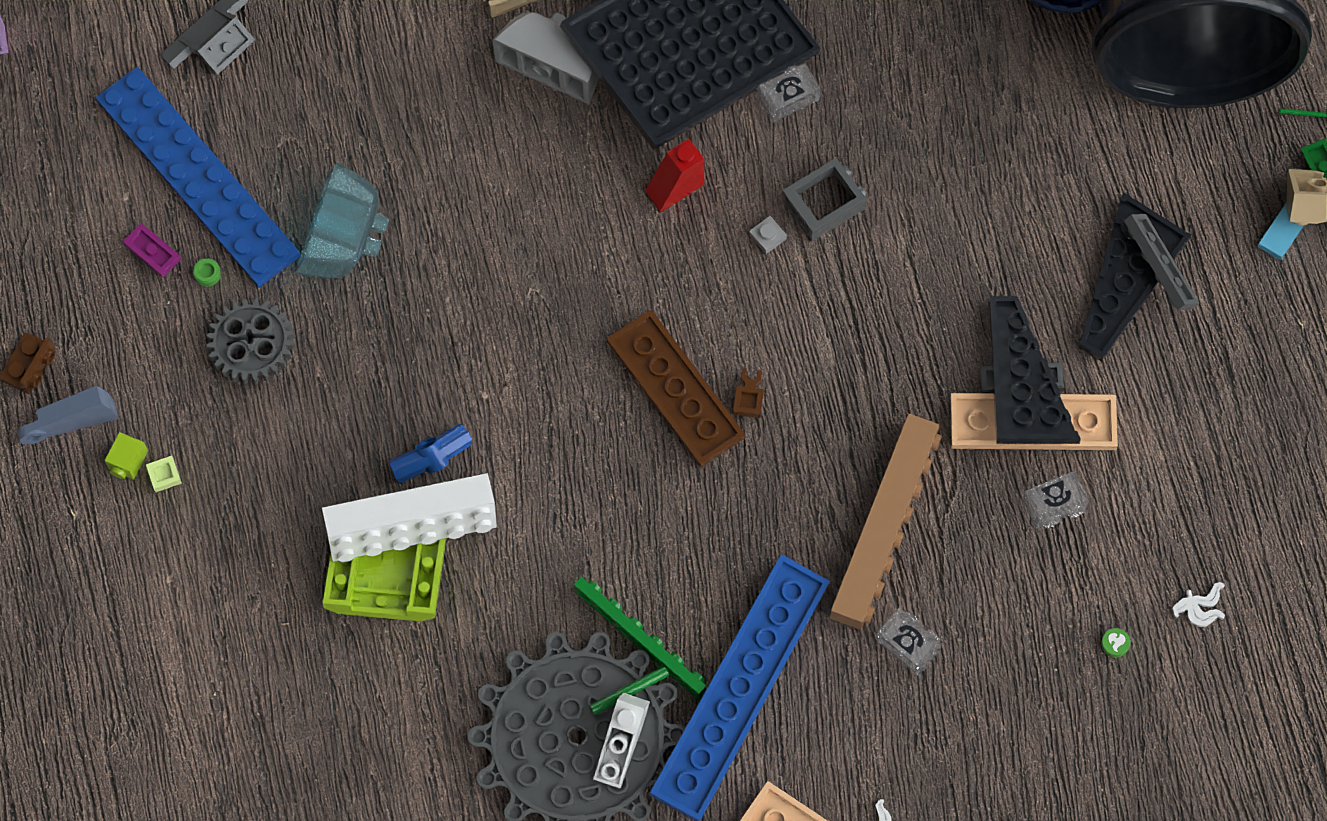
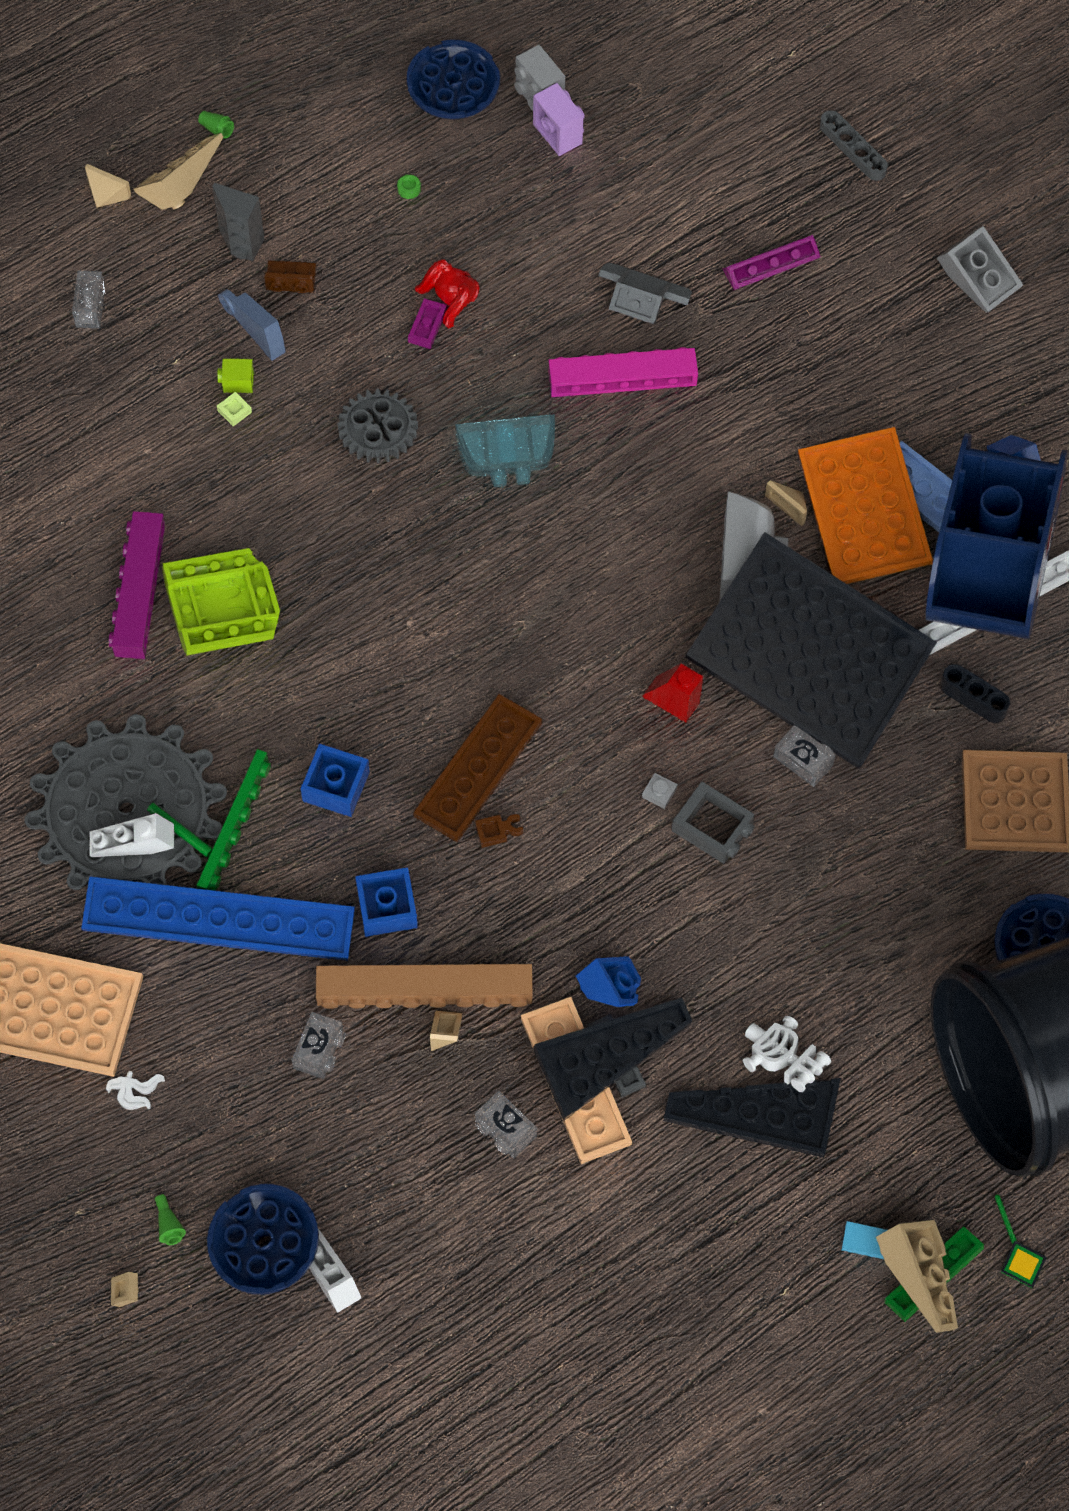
camera: 65 degrees right, 5 degrees down
(125, 208) = (452, 286): none -> red hair
(198, 177) = (510, 331): blue plate -> none
(206, 272) = (427, 372): bright green tile -> none
(298, 89) = (623, 372): none -> dark pink brick
(329, 639) = (138, 585): none -> magenta brick
(410, 517) = (260, 596): white brick -> none
(431, 454) = (333, 598): blue piece -> none
(637, 523) = (335, 780): none -> blue brick
(788, 522) = (386, 902): none -> blue brick
(939, 518) = (445, 1029): none -> tan slope
(952, 352) = (610, 981): none -> blue slope
(1099, 731) = (246, 1219): none -> dark blue brick
(1101, 216) = (776, 1056): none -> white piece
(1115, 643) = (390, 1228): bright green tile -> none
(1137, 712) = (333, 1276): none -> white slope
(1162, 263) = (779, 1133): dark grey plate -> none
(1194, 613) = (447, 1292): white piece -> none

